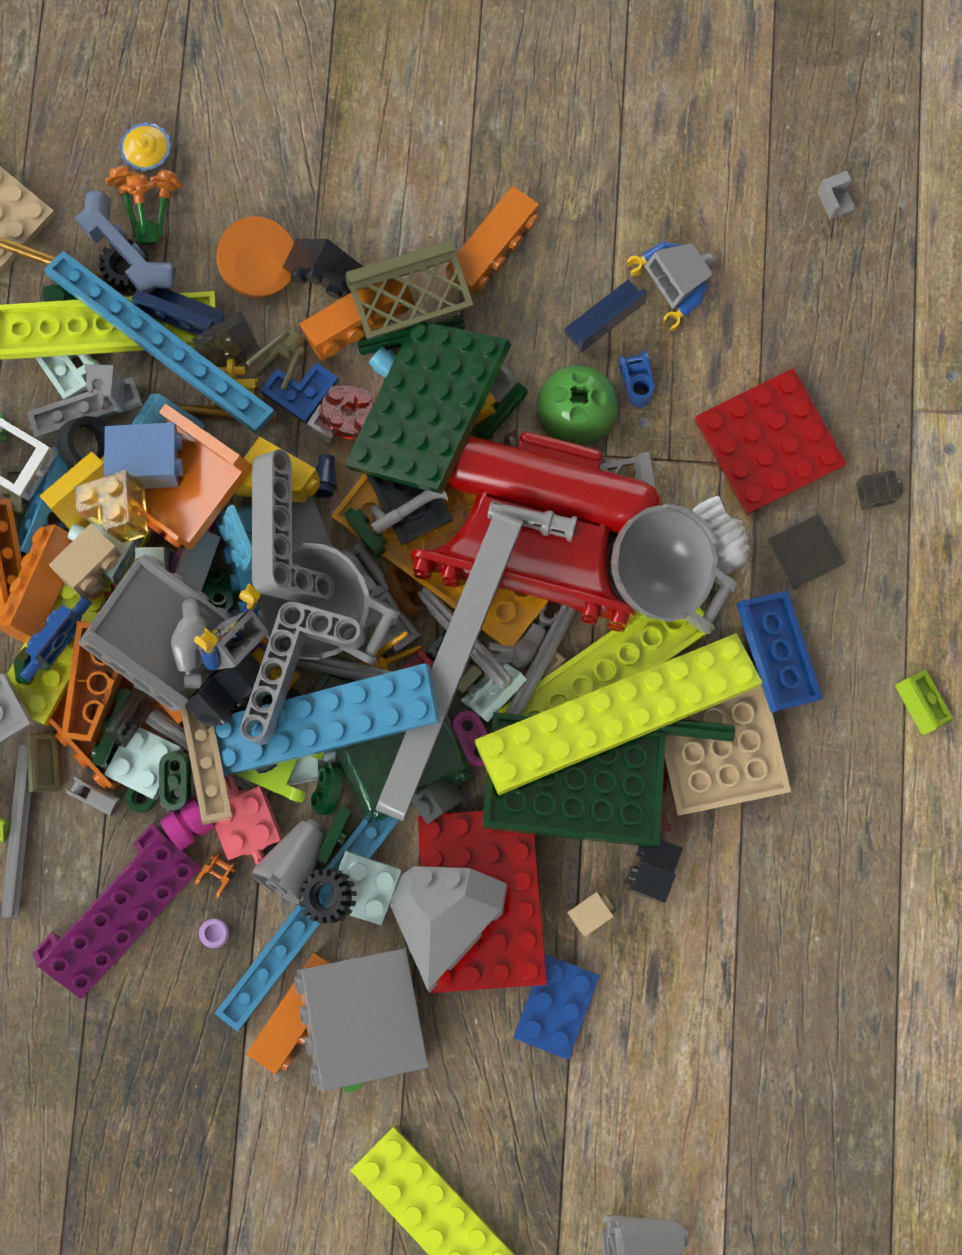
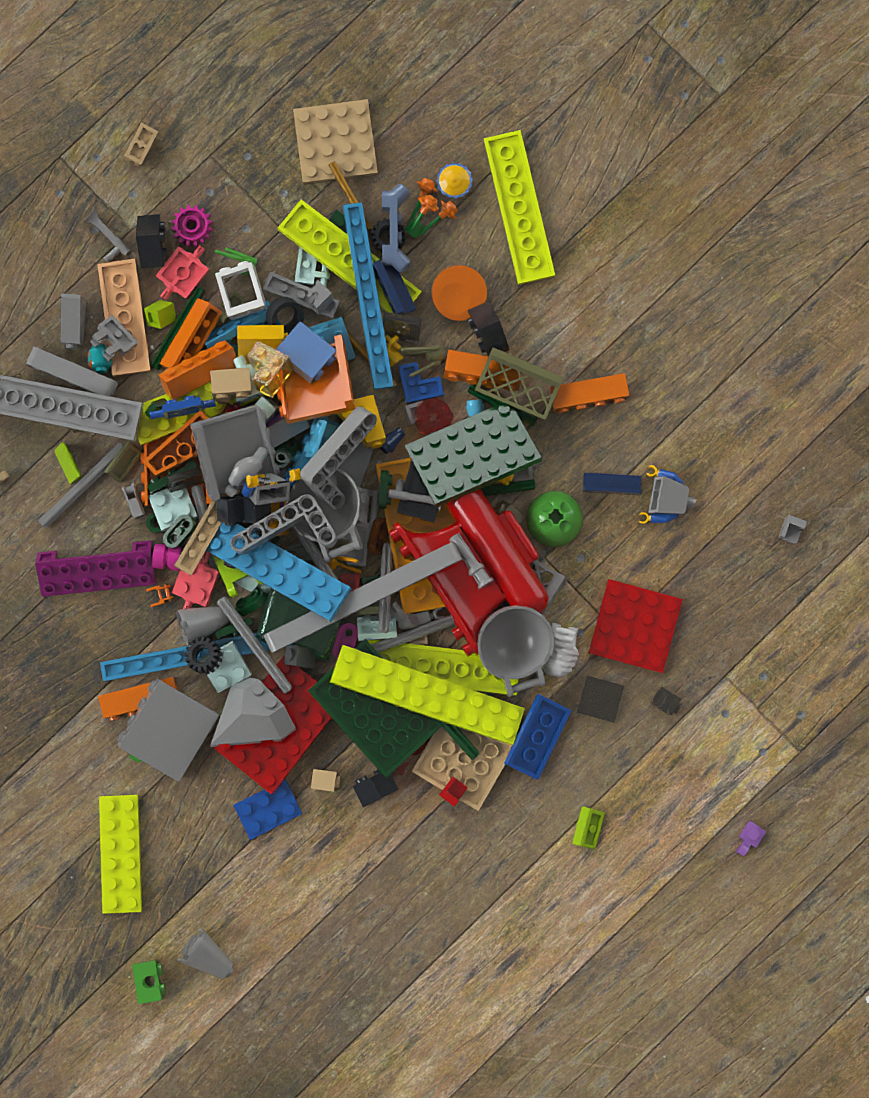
camera: 40 degrees right, 5 degrees up
(214, 933) = (133, 622): lavender tile -> none
(241, 117) = (519, 207): none -> neon yellow plate
(374, 831) = (254, 644): none -> light grey axle
(637, 373) = (599, 529): blue piece -> none
(744, 794) = (453, 791): none -> red panel

